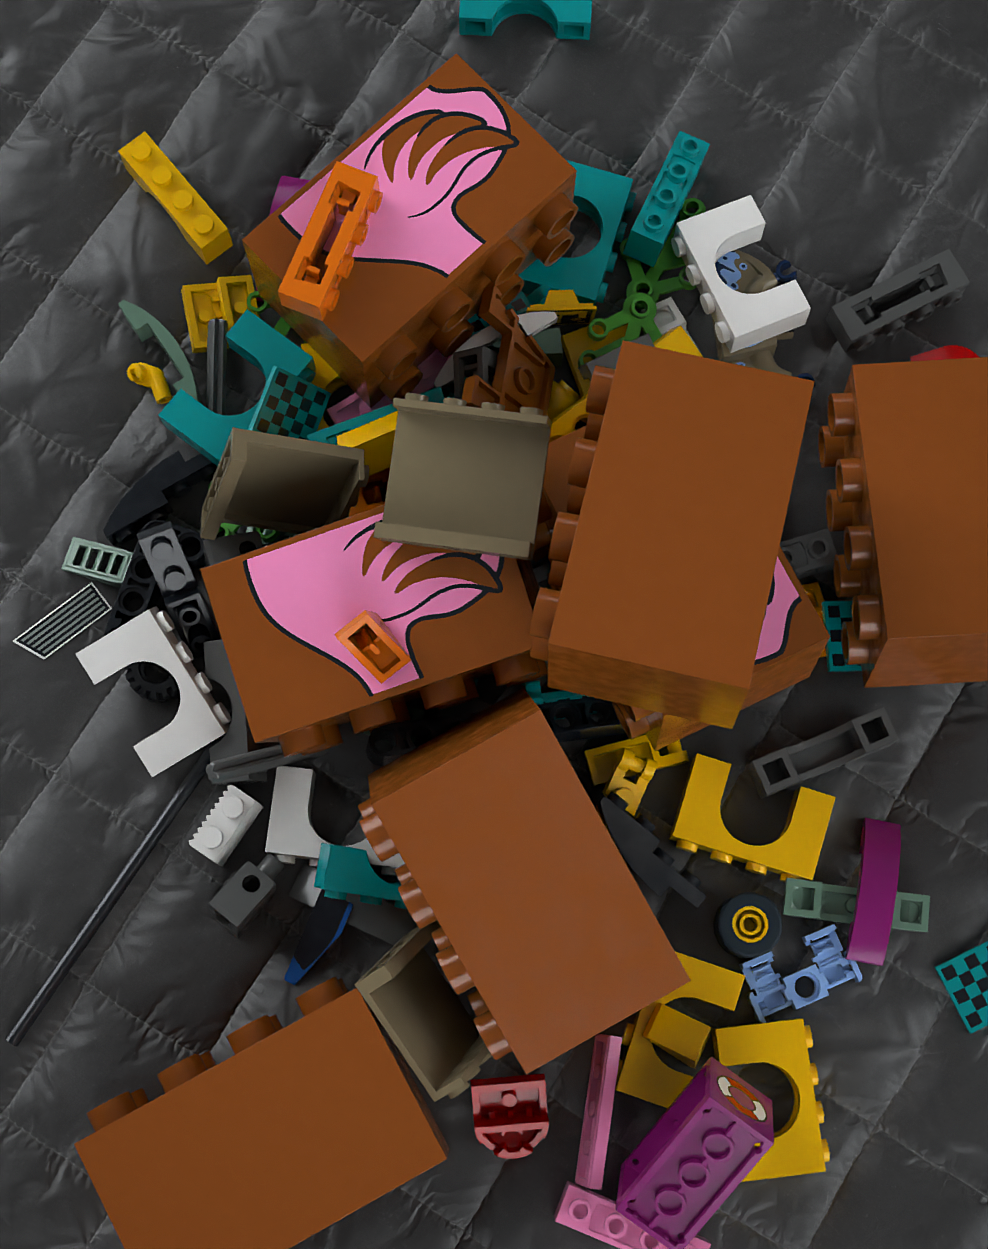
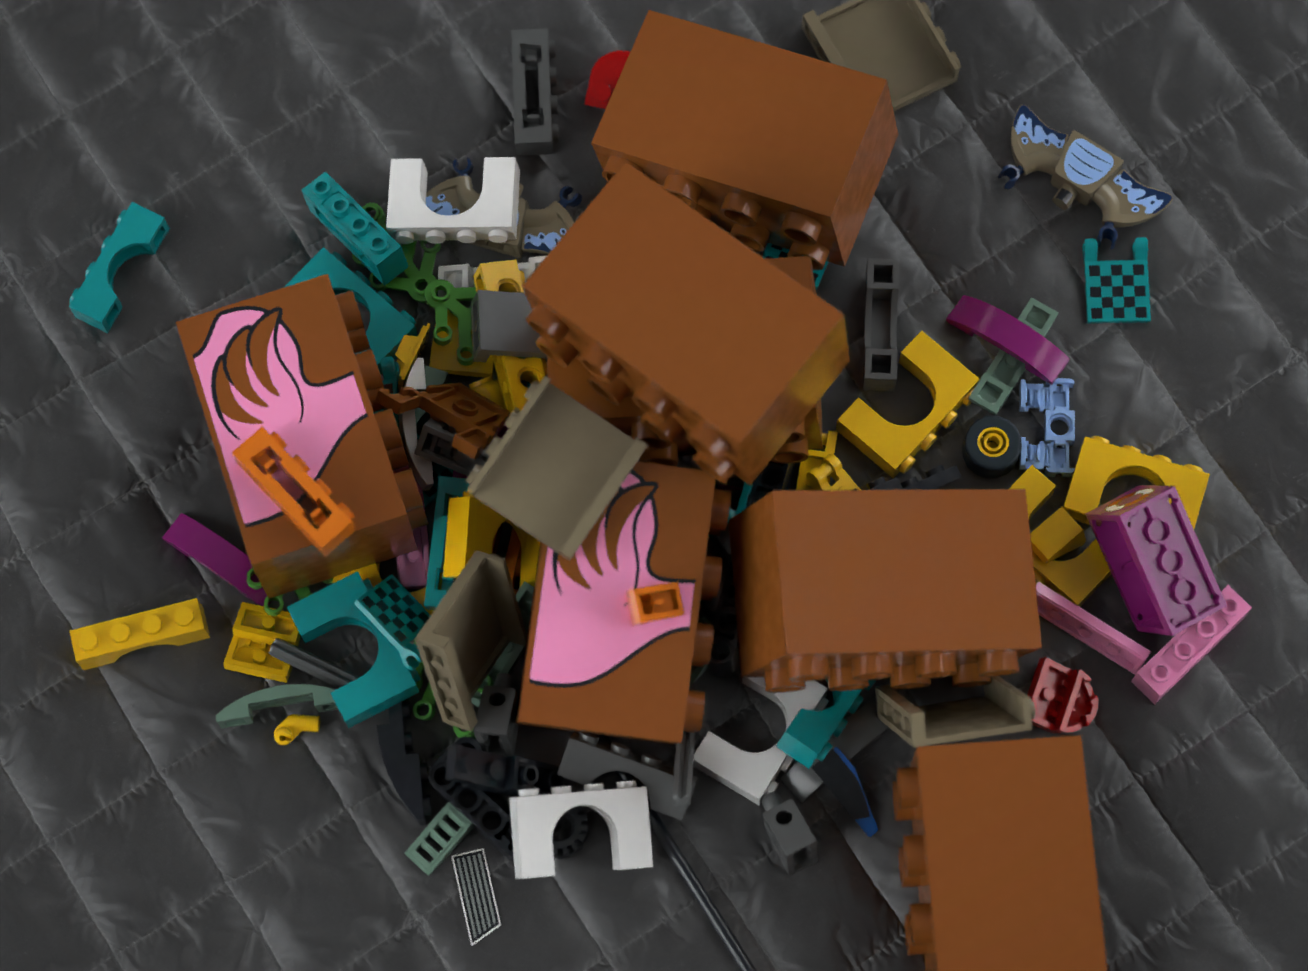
camera: 60 degrees left, 5 degrees down
(226, 825) = (721, 825): white brick -> none

